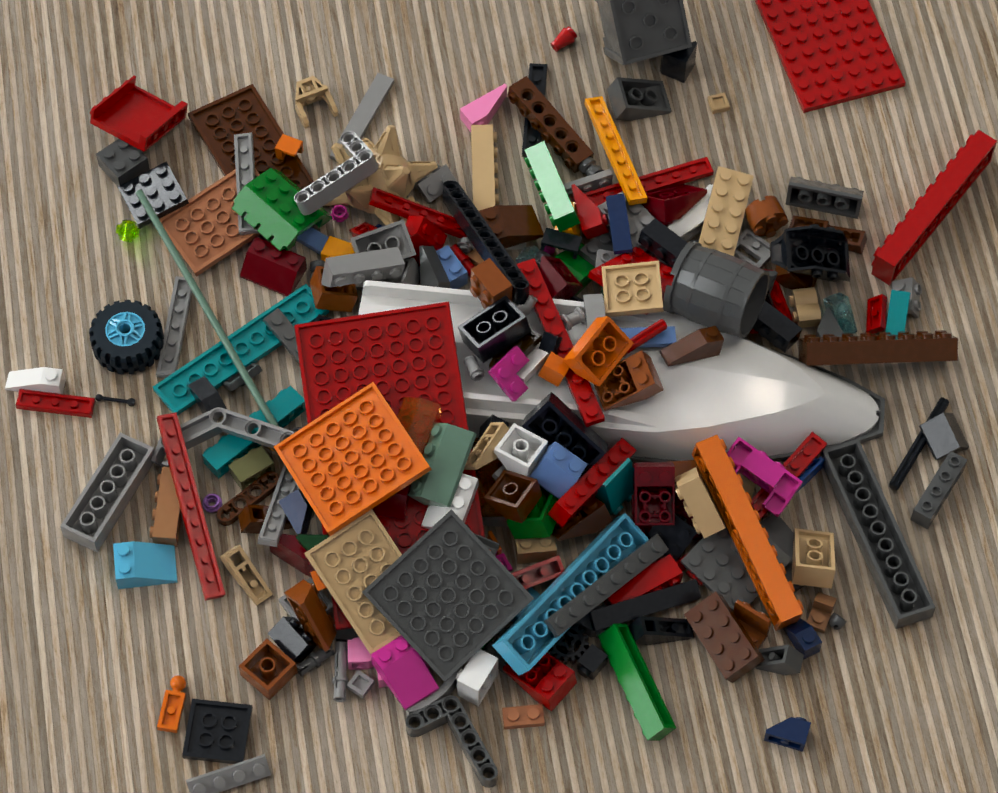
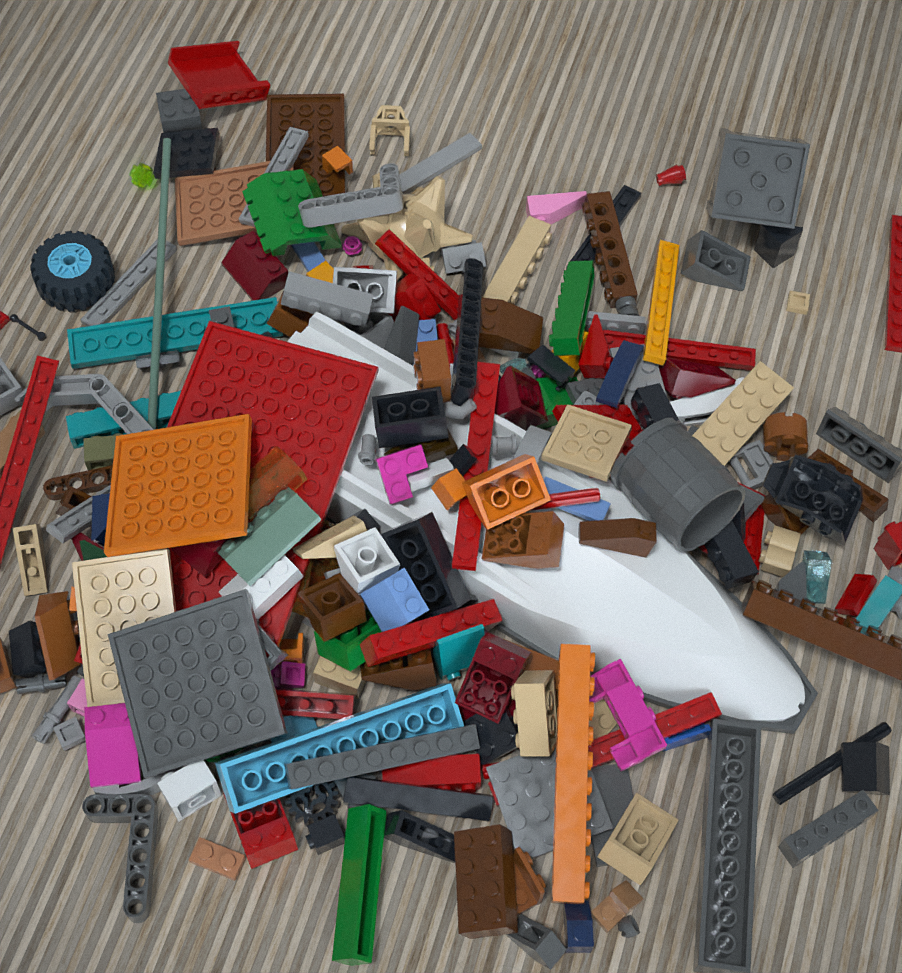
camera: 25 degrees right, 0 degrees up
(205, 395) = (108, 360): black slope -> none
(212, 498) = (48, 464): medium lavender plate -> none

